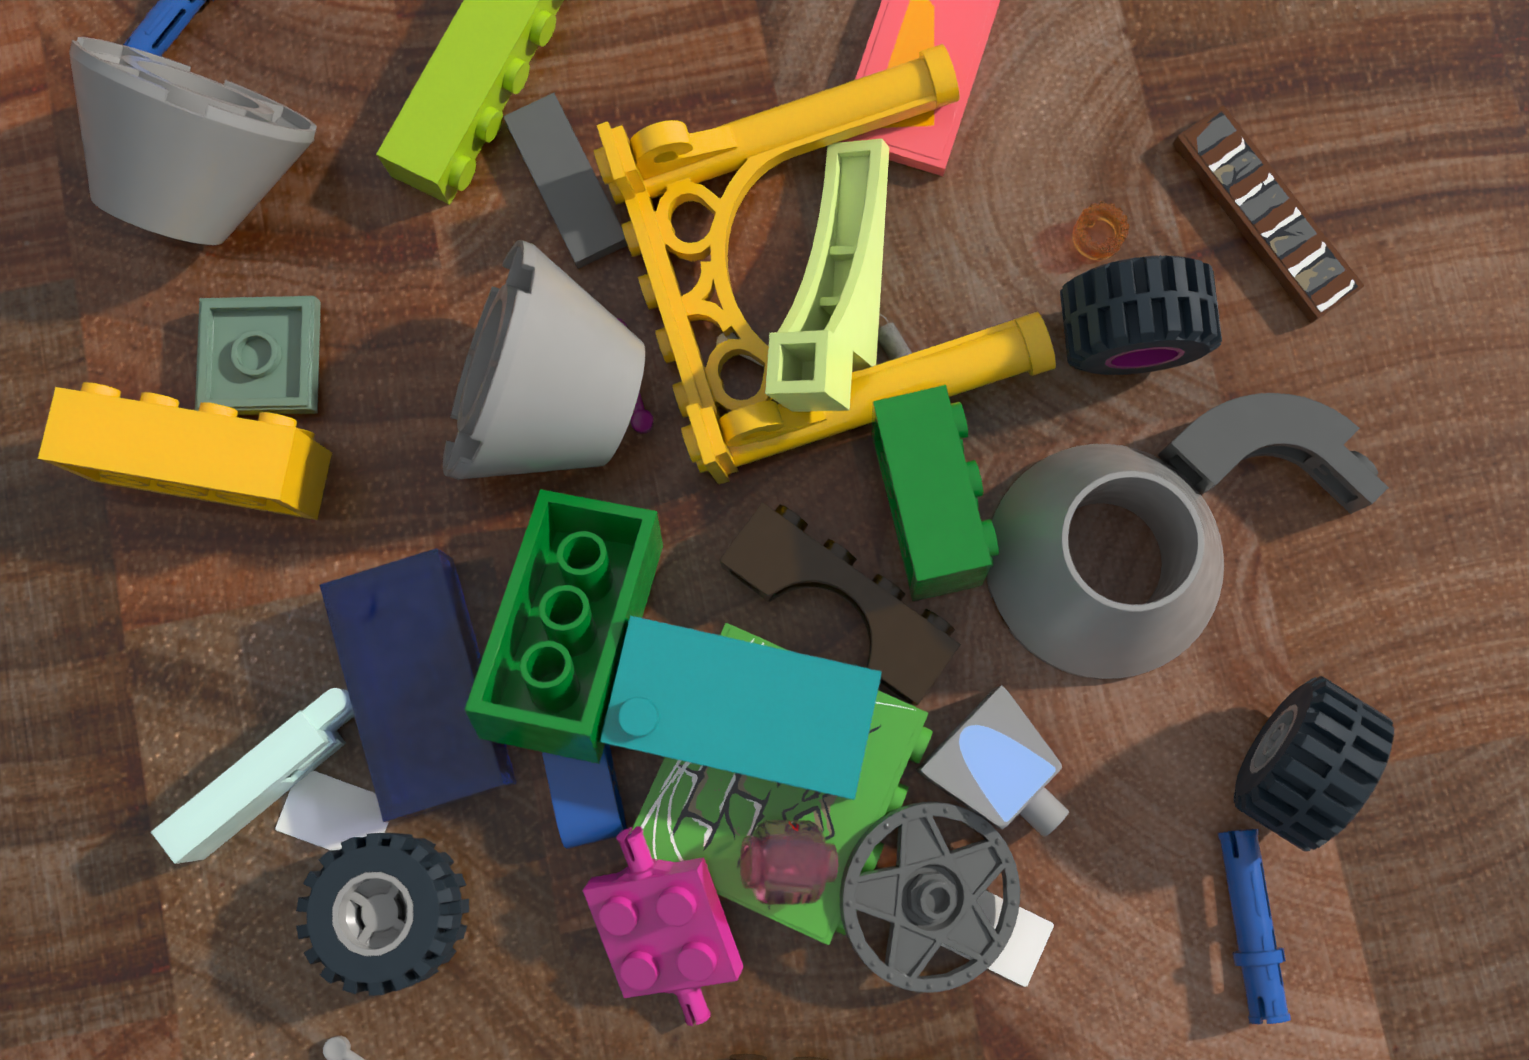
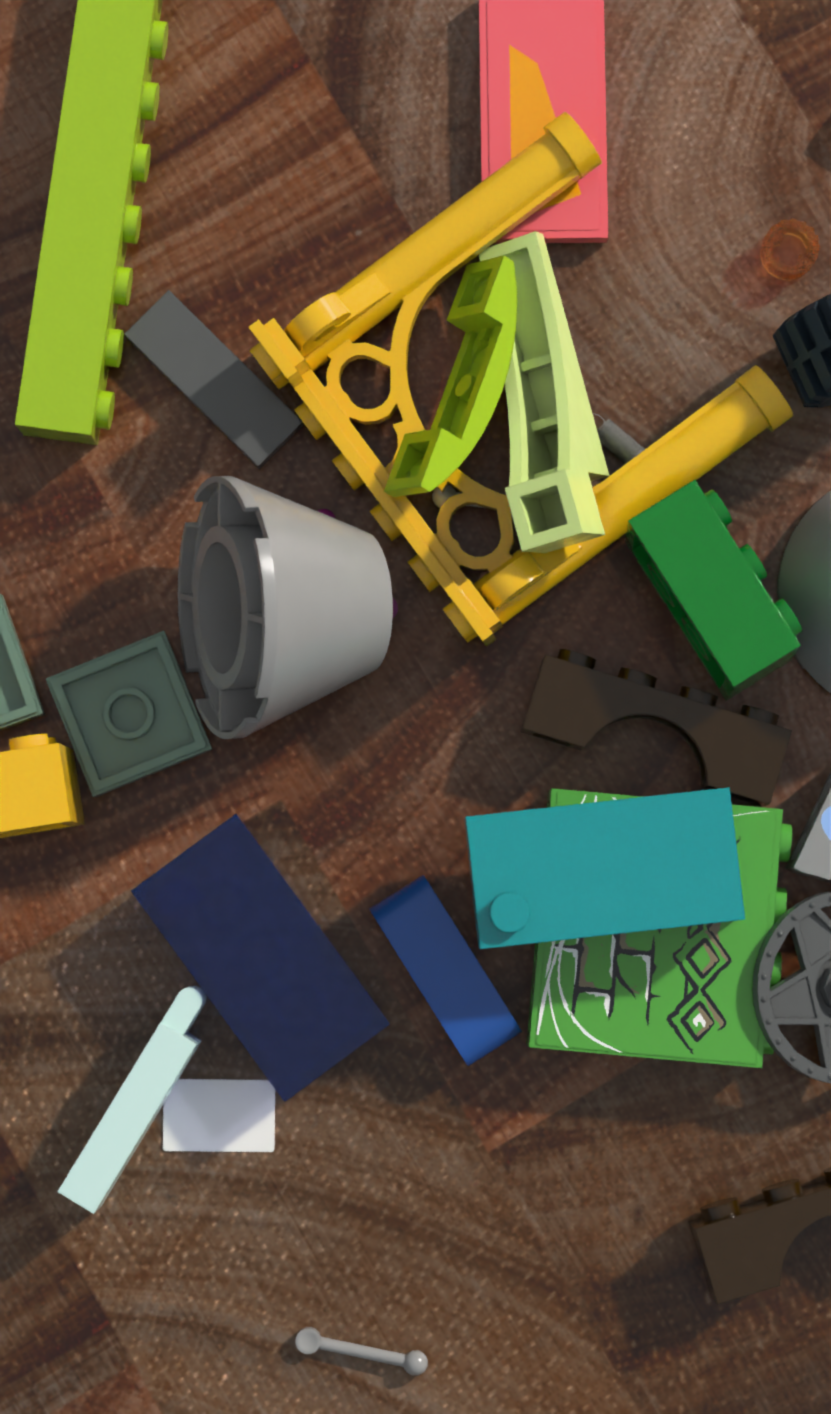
camera: 30 degrees left, 5 degrees up
(382, 912) = (311, 1190): black wheel -> none
(385, 435) = (129, 714): none -> sand green plate
(564, 625) = (397, 845): green brick -> none
(663, 927) = (594, 1107): dark pink plate -> none
(787, 862) = (697, 1002): clear pink head -> none
(814, 196) = (488, 315): none -> lime slope

